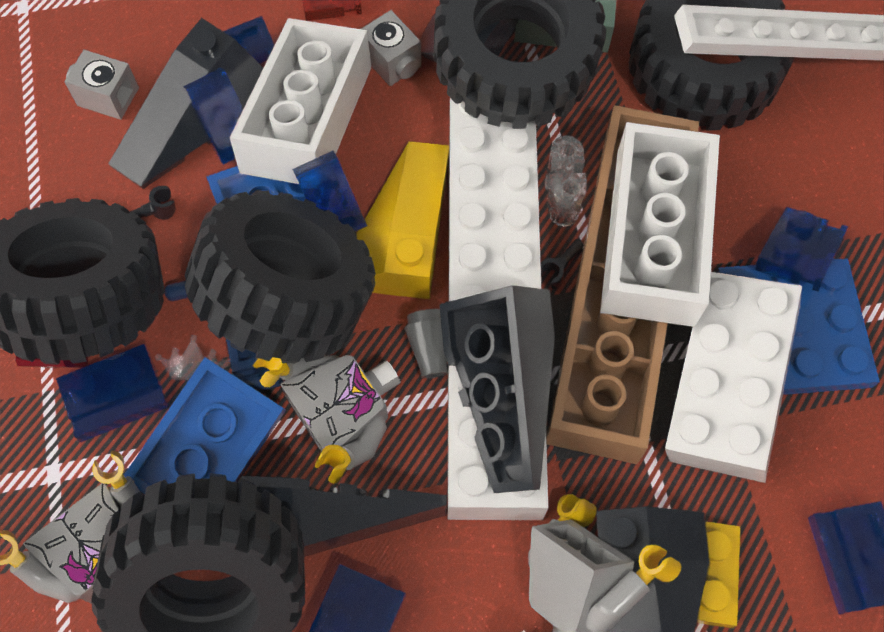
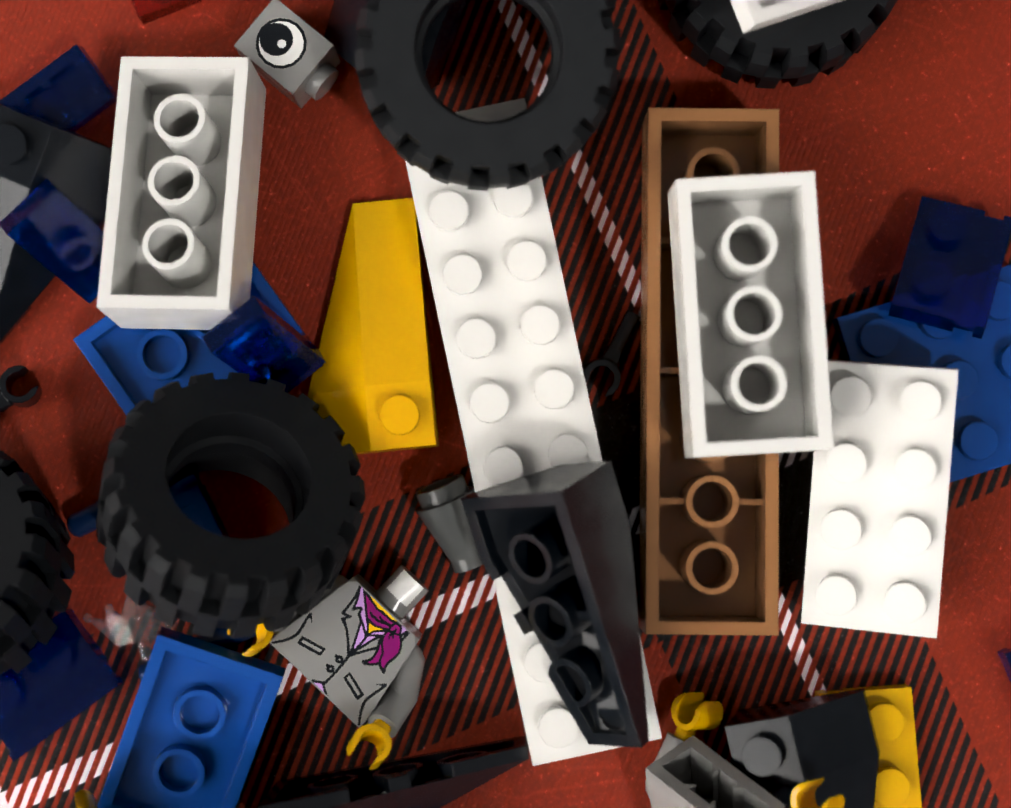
camera: 10 degrees left, 20 degrees up
(565, 181) = (597, 229): clear piece -> none

